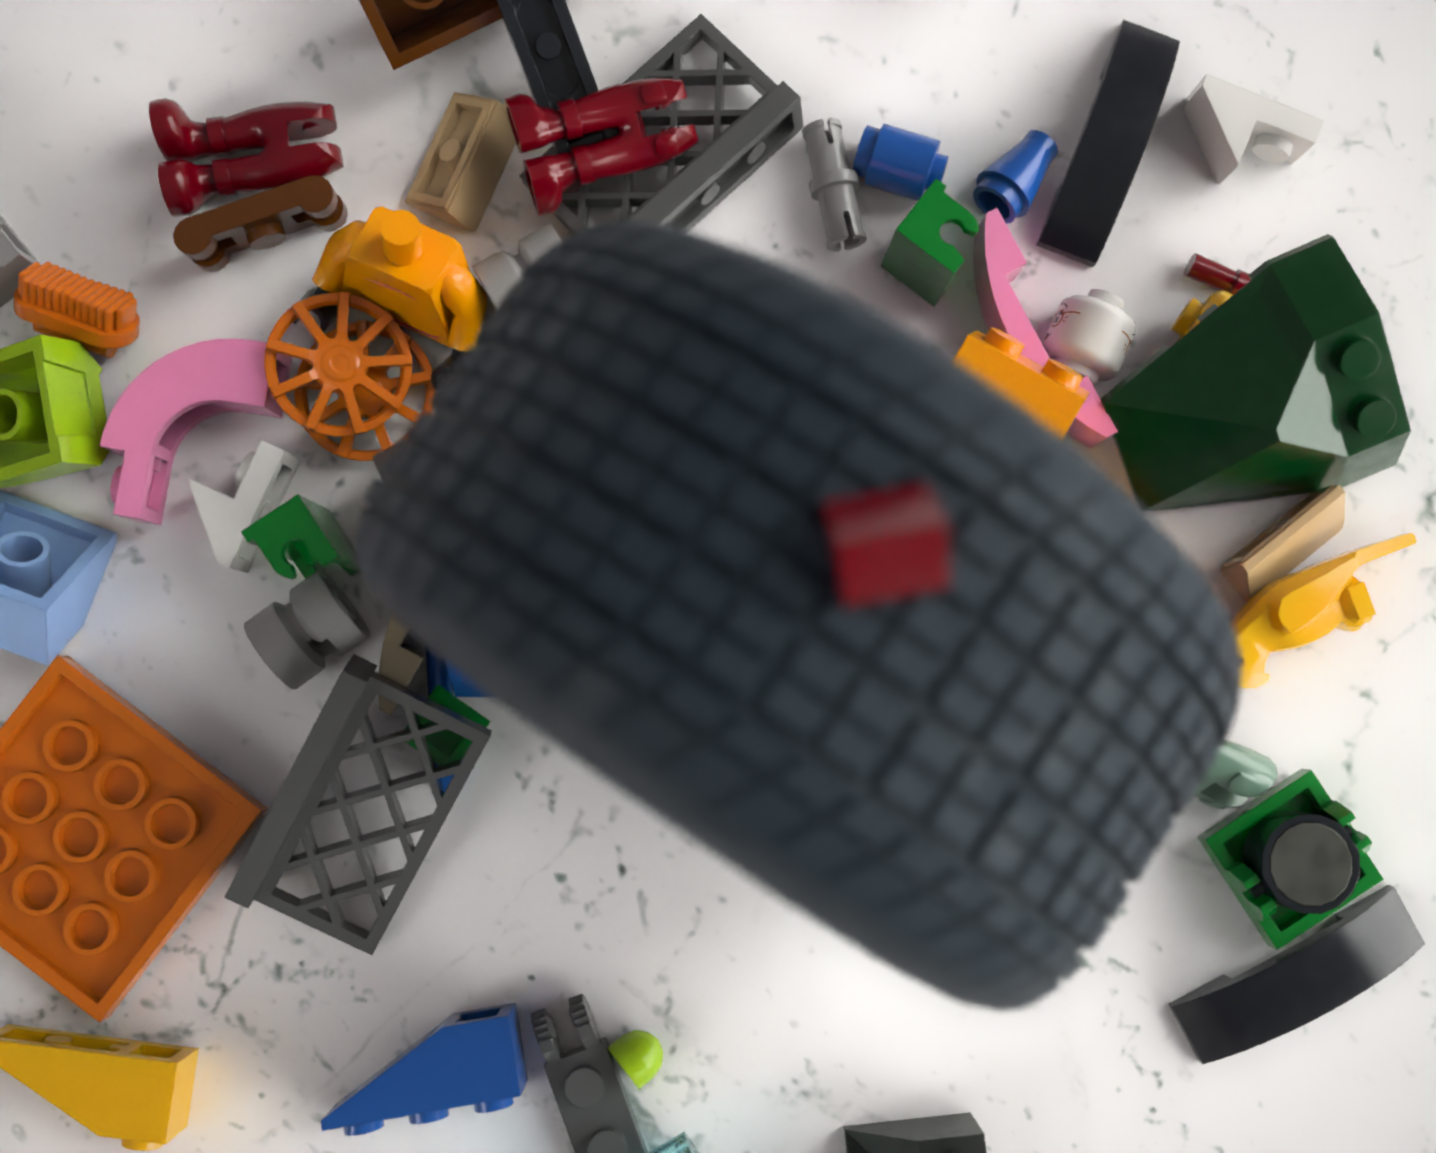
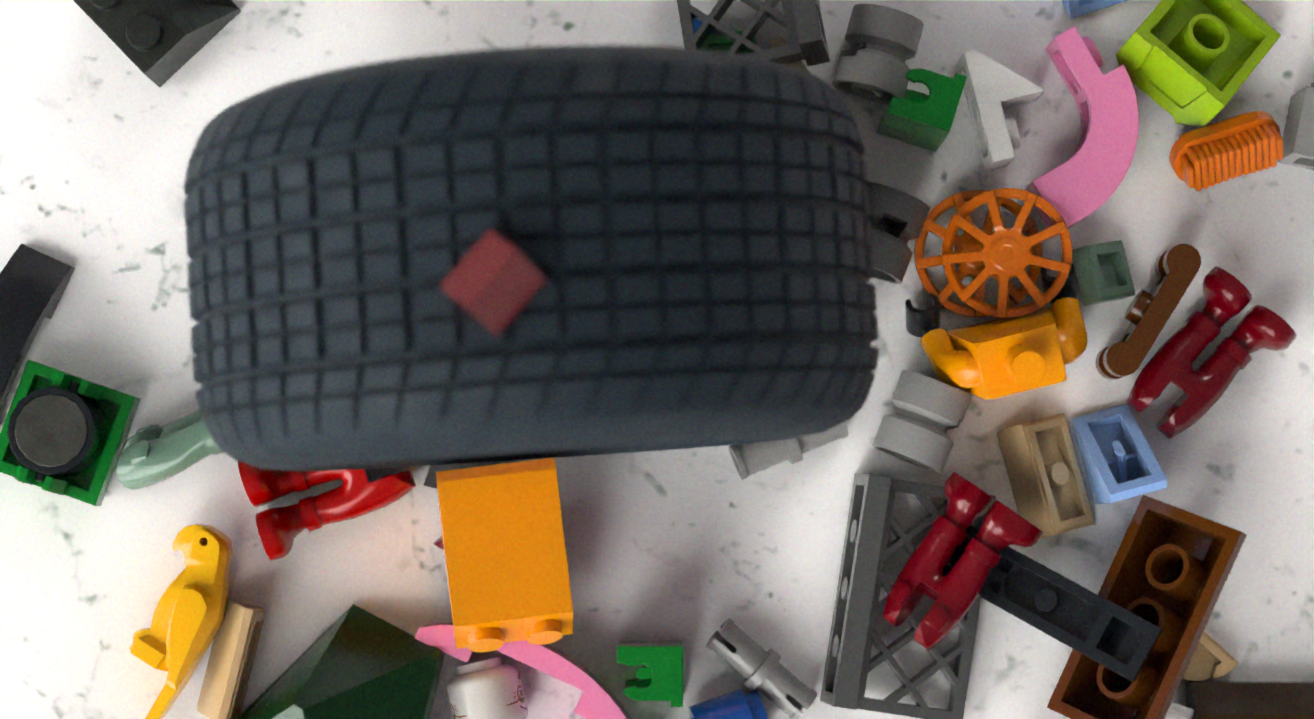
camera: 155 degrees right, 0 degrees up
(271, 286) = (1102, 272): none -> sand green tile
(390, 121) = (1117, 455): none -> light blue slope

